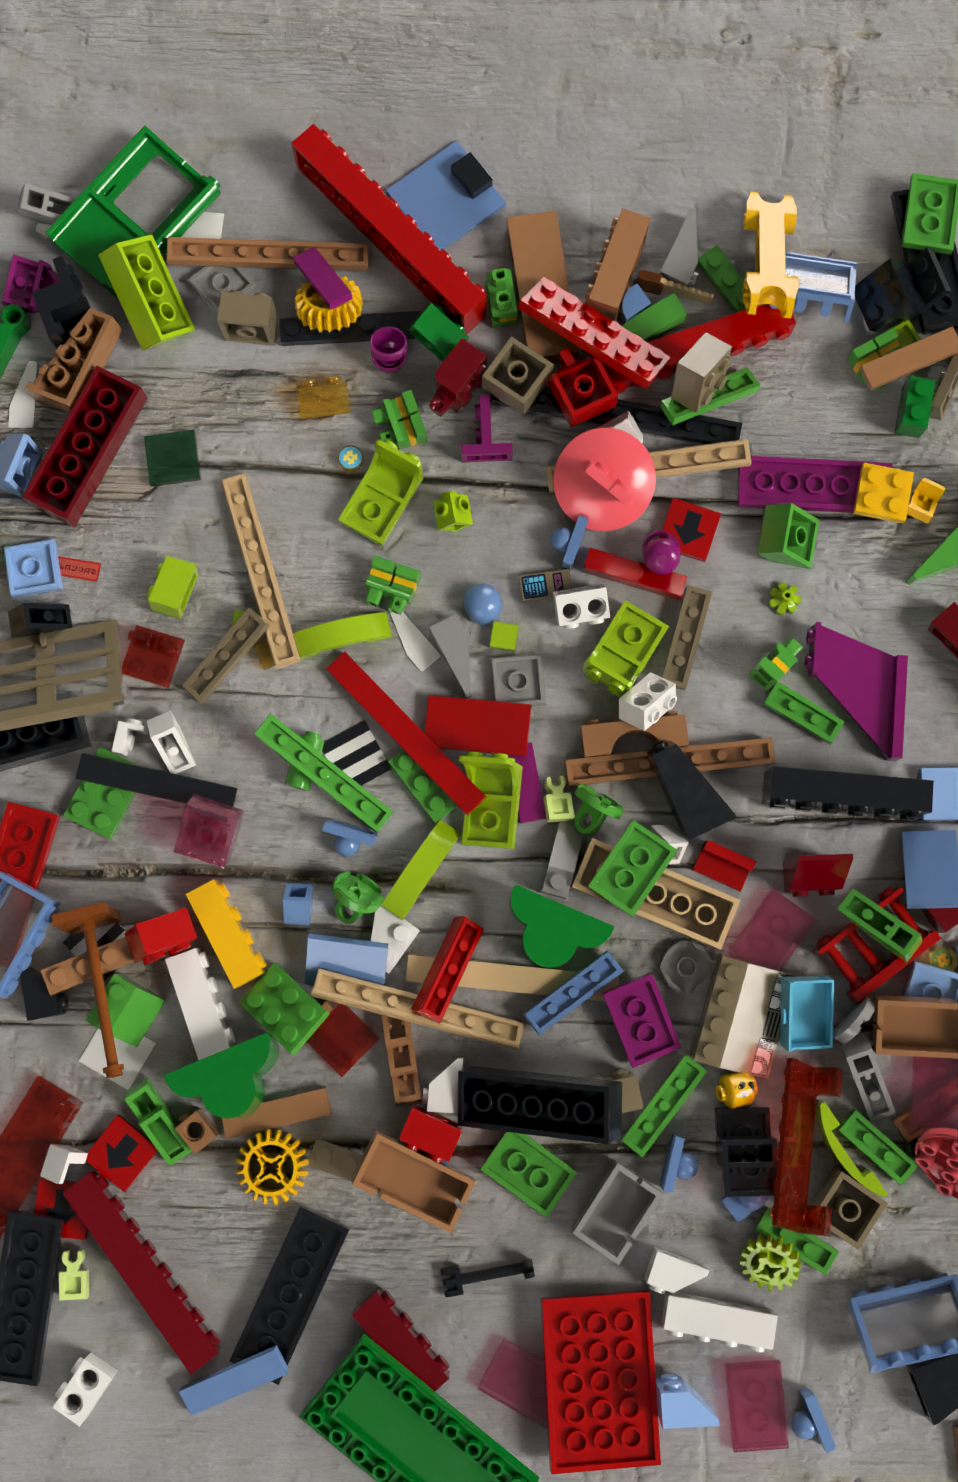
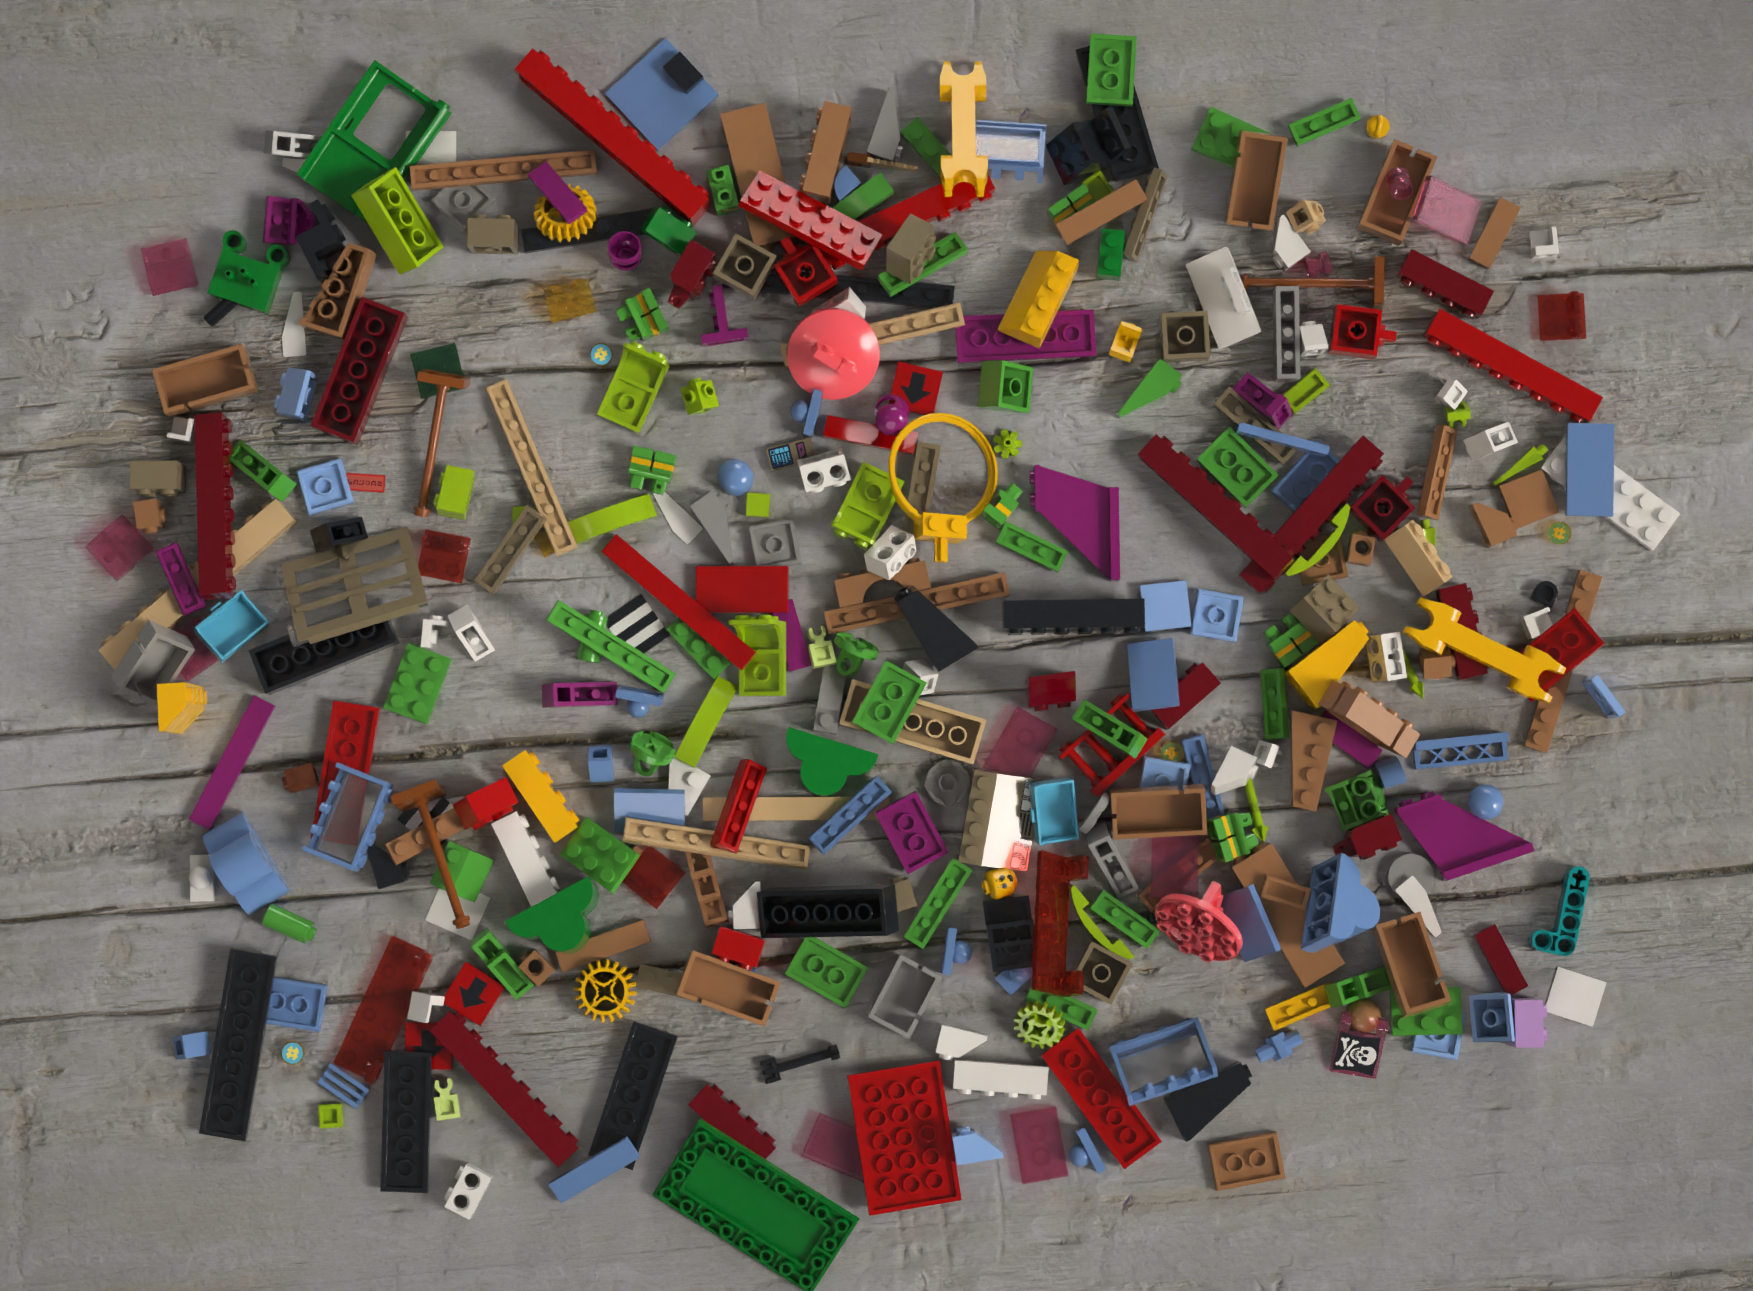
camera: 10 degrees left, 5 degrees up
(150, 781) = (463, 671): black tile -> none
(173, 464) = (443, 383): none -> dark orange tile
(208, 831) = (515, 708): clear pink brick -> none
(282, 823) = (579, 694): none -> magenta slope
(702, 678) = (935, 526): none -> yellow brick
(723, 865) = (972, 690): red panel -> none
(834, 1358) = (1101, 1098): none -> red plate
(835, 442) = (1039, 296): none -> yellow slope
(883, 493) = (1086, 339): yellow plate -> none

